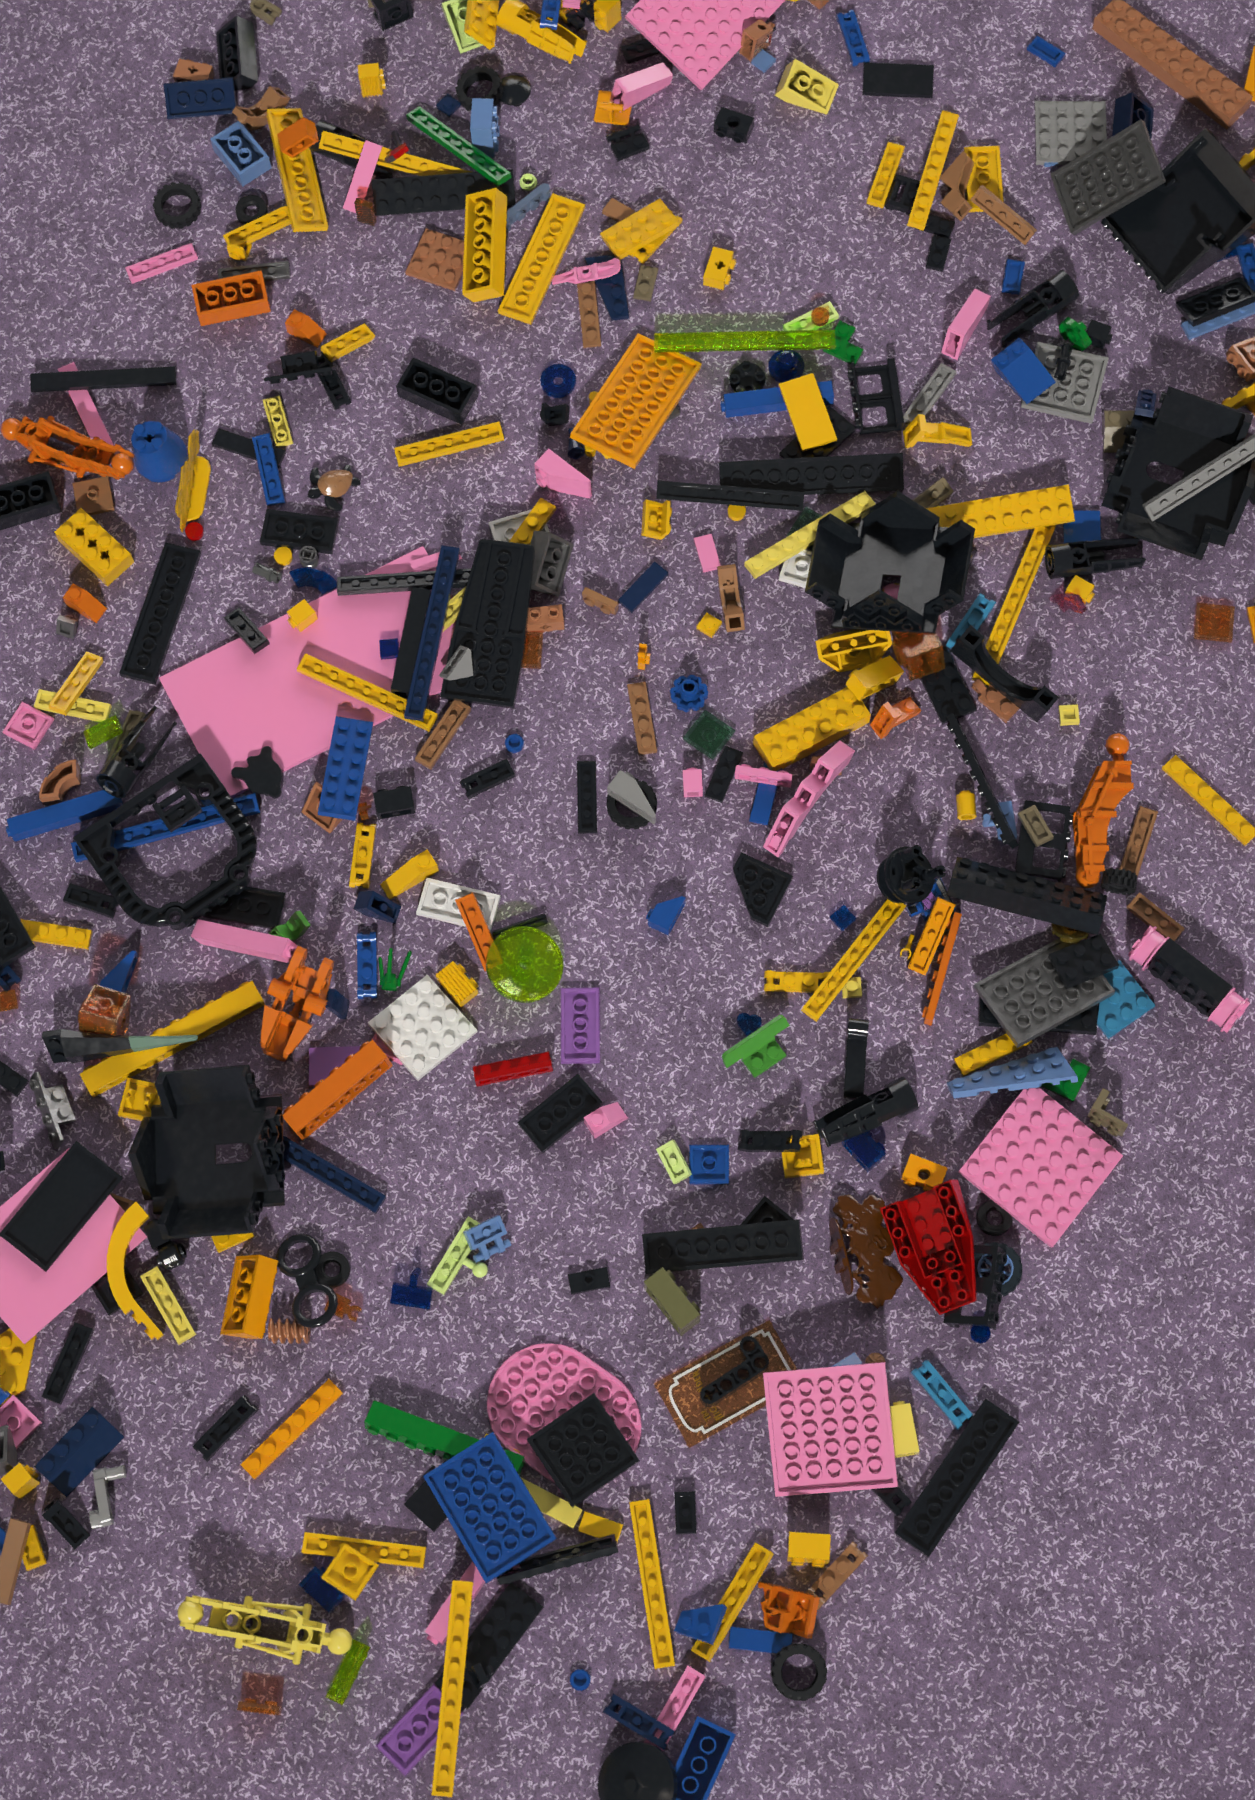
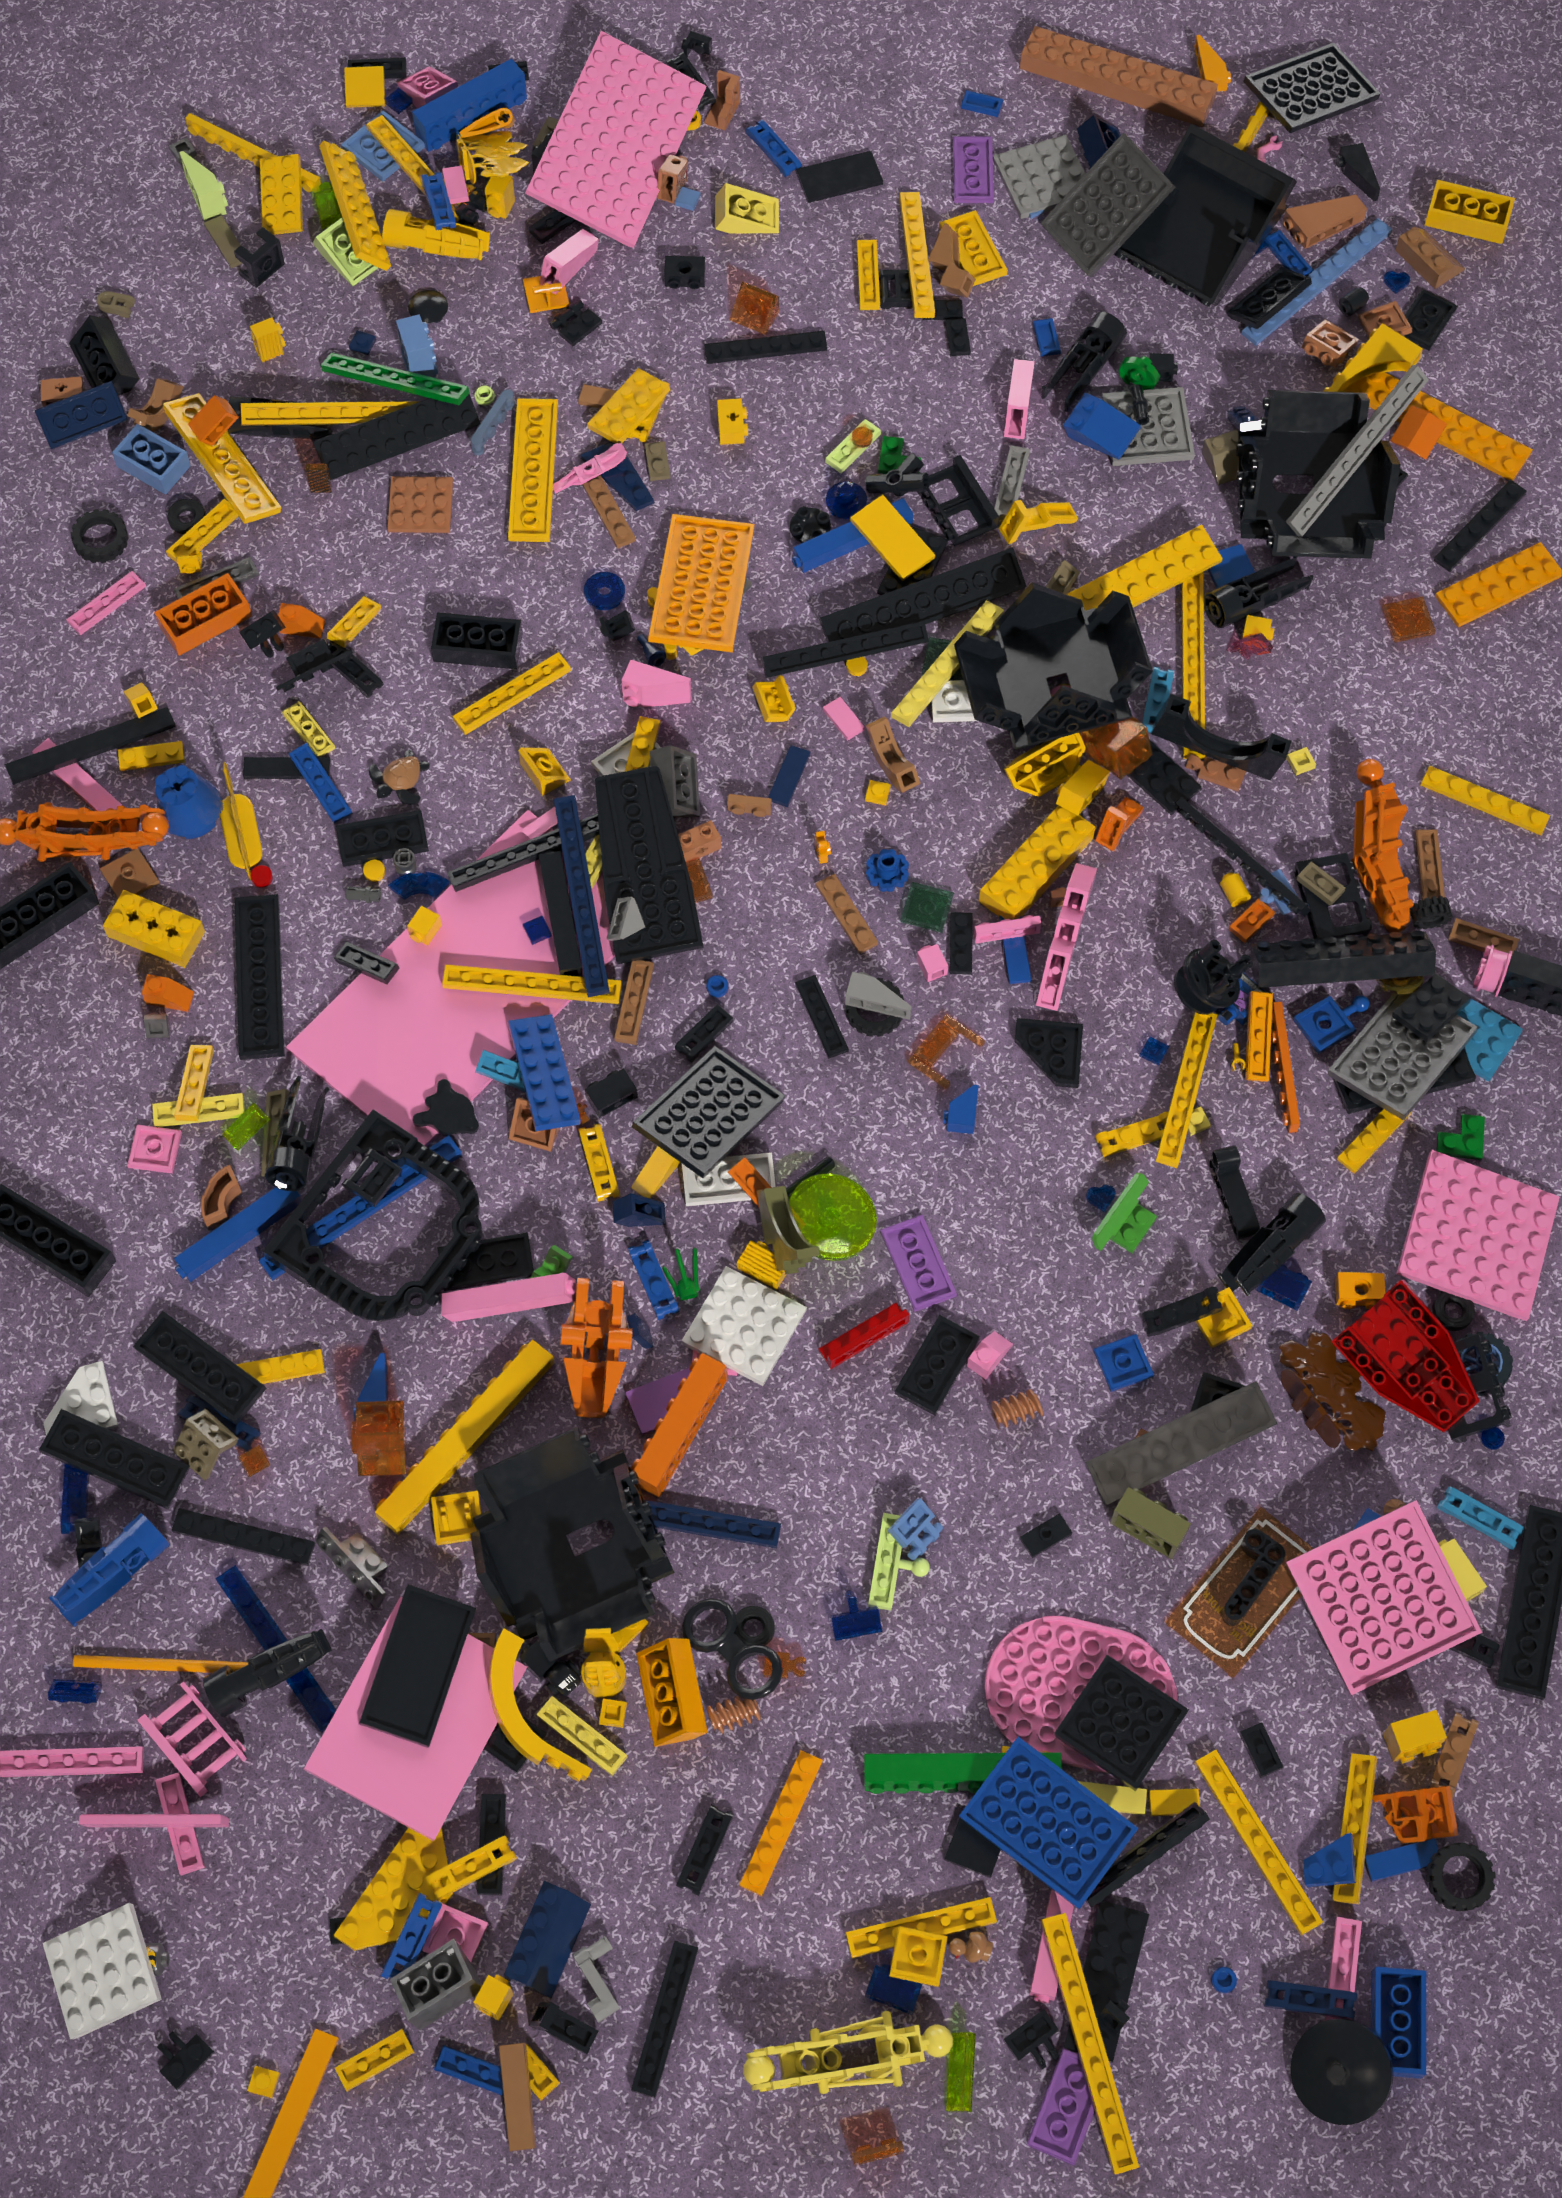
camera: 25 degrees left, 5 degrees down
(43, 1375) = (471, 1867): none -> yellow plate
(84, 1046) = (368, 1478): black plate -> none
(90, 900) = (307, 1316): black plate -> none
(143, 1545) = (664, 2019): none -> black plate
(147, 403) = (151, 755): none -> yellow plate
(155, 354) = (140, 700): none -> yellow brick
(198, 1296) = (613, 1713): none -> yellow plate
(199, 1259) = (603, 1665): none -> yellow piece
(272, 326) = (263, 629): none -> black hinge
(313, 752) = (500, 1069): none -> dark azure plate
(363, 174) = (301, 440): bright pink tile -> none
(398, 1583) = (976, 1948): none -> medium nougat animal
(399, 150) = (334, 399): piece -> none
(413, 1665) = (1030, 2036): none -> black hinge
(449, 515) = (542, 769): none -> yellow slope
(461, 845) = (708, 1112): none -> plate
(476, 75) = (382, 301): black tyre -> none
(477, 962) = (781, 1230): none -> olive arch
(484, 245) = (467, 472): yellow brick -> none
(607, 1171) = (1016, 1408): none -> nougat piece
(668, 852) = (937, 1043): none -> clear orange plate
(674, 1161) = (1085, 1372): yellowish green plate -> none
(744, 341) = (792, 486): clear neon green plate -> none
(775, 212) = (765, 347): none -> black plate
(778, 176) = (755, 308): none -> clear orange slope
(835, 365) = (900, 480): none -> black piece
(969, 836) = (1251, 920): none -> orange plate
(1000, 935) = (1329, 1011): none -> blue plate
(1003, 215) = (1012, 276): medium nougat plate -> none
(1013, 108) = (973, 169): none -> medium lavender tile
(1017, 1074) = (1420, 1145): medium blue wing -> none
(1100, 1117) = (1520, 1162): dark tan bracket -> none

